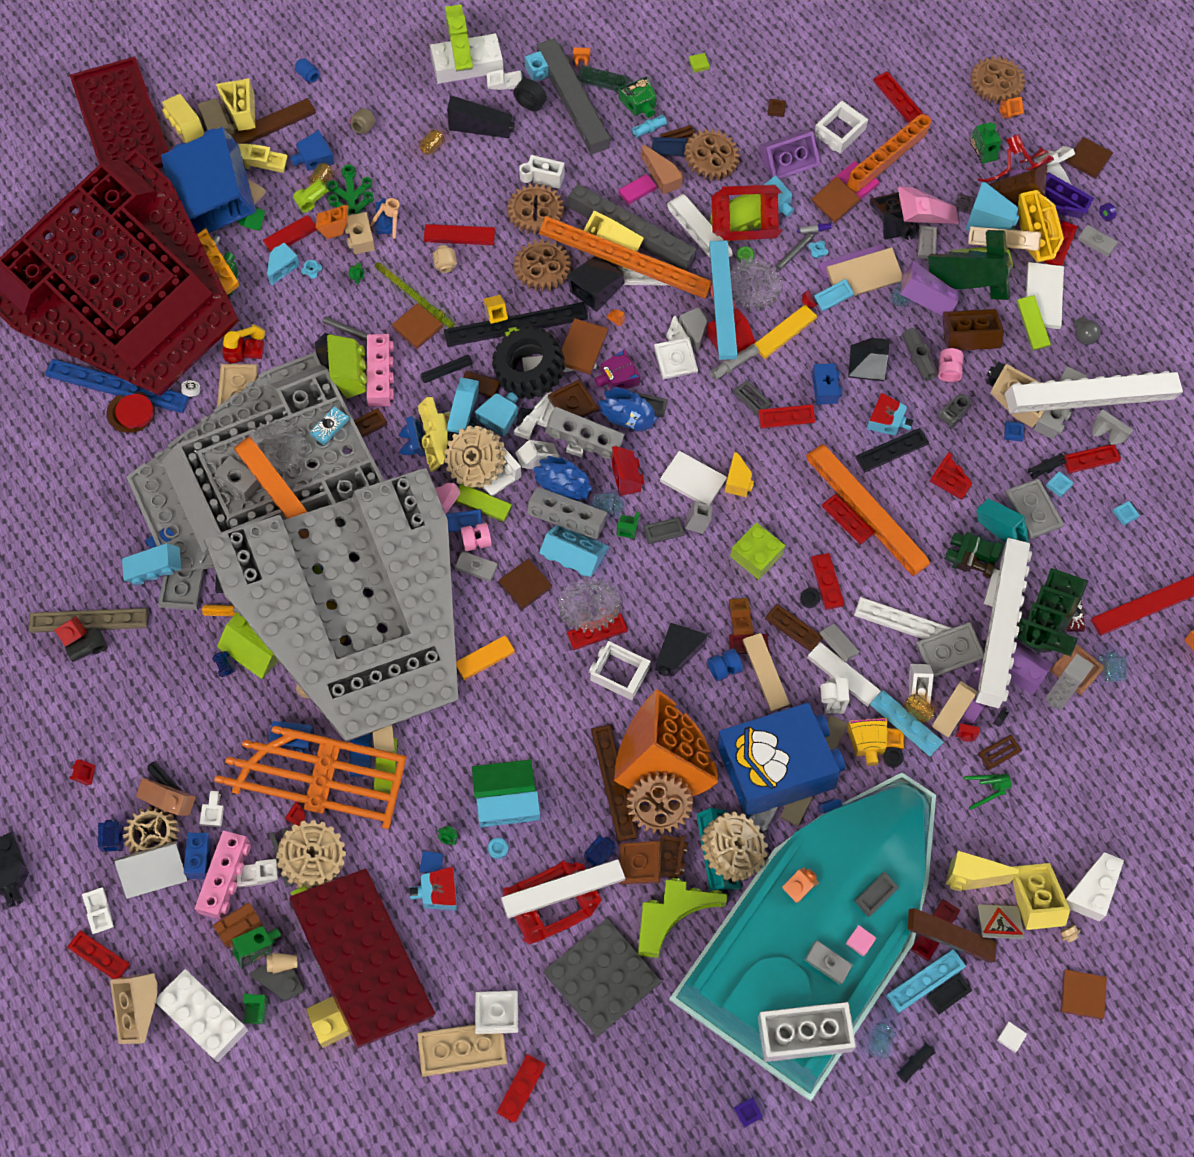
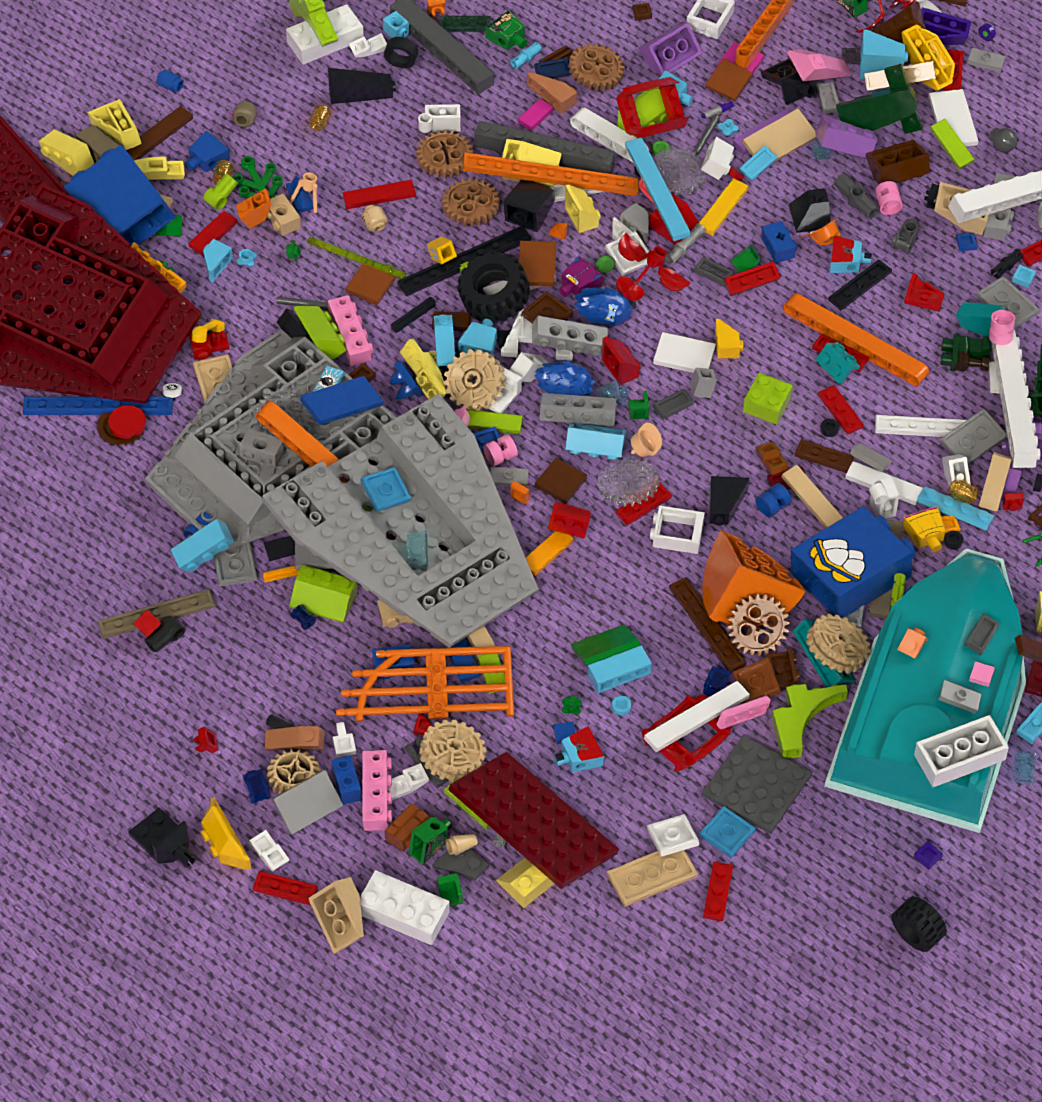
camera: 15 degrees left, 10 degrees down
(57, 882) = (222, 838): none -> yellow wedge
(332, 448) = (341, 400): none -> blue tile
(340, 556) = (385, 489): none -> dark azure tile
(348, 629) = (417, 550): none -> clear light blue tile
(479, 587) = (519, 492): none -> orange tile
(516, 630) = (569, 520): none -> red bracket
(554, 1023) = (727, 832): none -> dark azure tile
(612, 896) = (743, 712): none -> bright pink tile
(622, 564) = (646, 441): none -> light nougat piece
(644, 300) = (581, 209): none -> light yellow slope
(648, 364) = (605, 264): none -> bright green tile
(677, 357) = (633, 251): none -> red plant
(787, 394) = (746, 259): none -> green panel
(795, 280) = (718, 158): none -> white brick
(815, 803) = (898, 587): none -> lime axle
(840, 529) = (837, 361): none -> teal bracket
(874, 387) = (825, 235): none -> orange piece
(1016, 540) = (1002, 327): none -> bright pink wheel

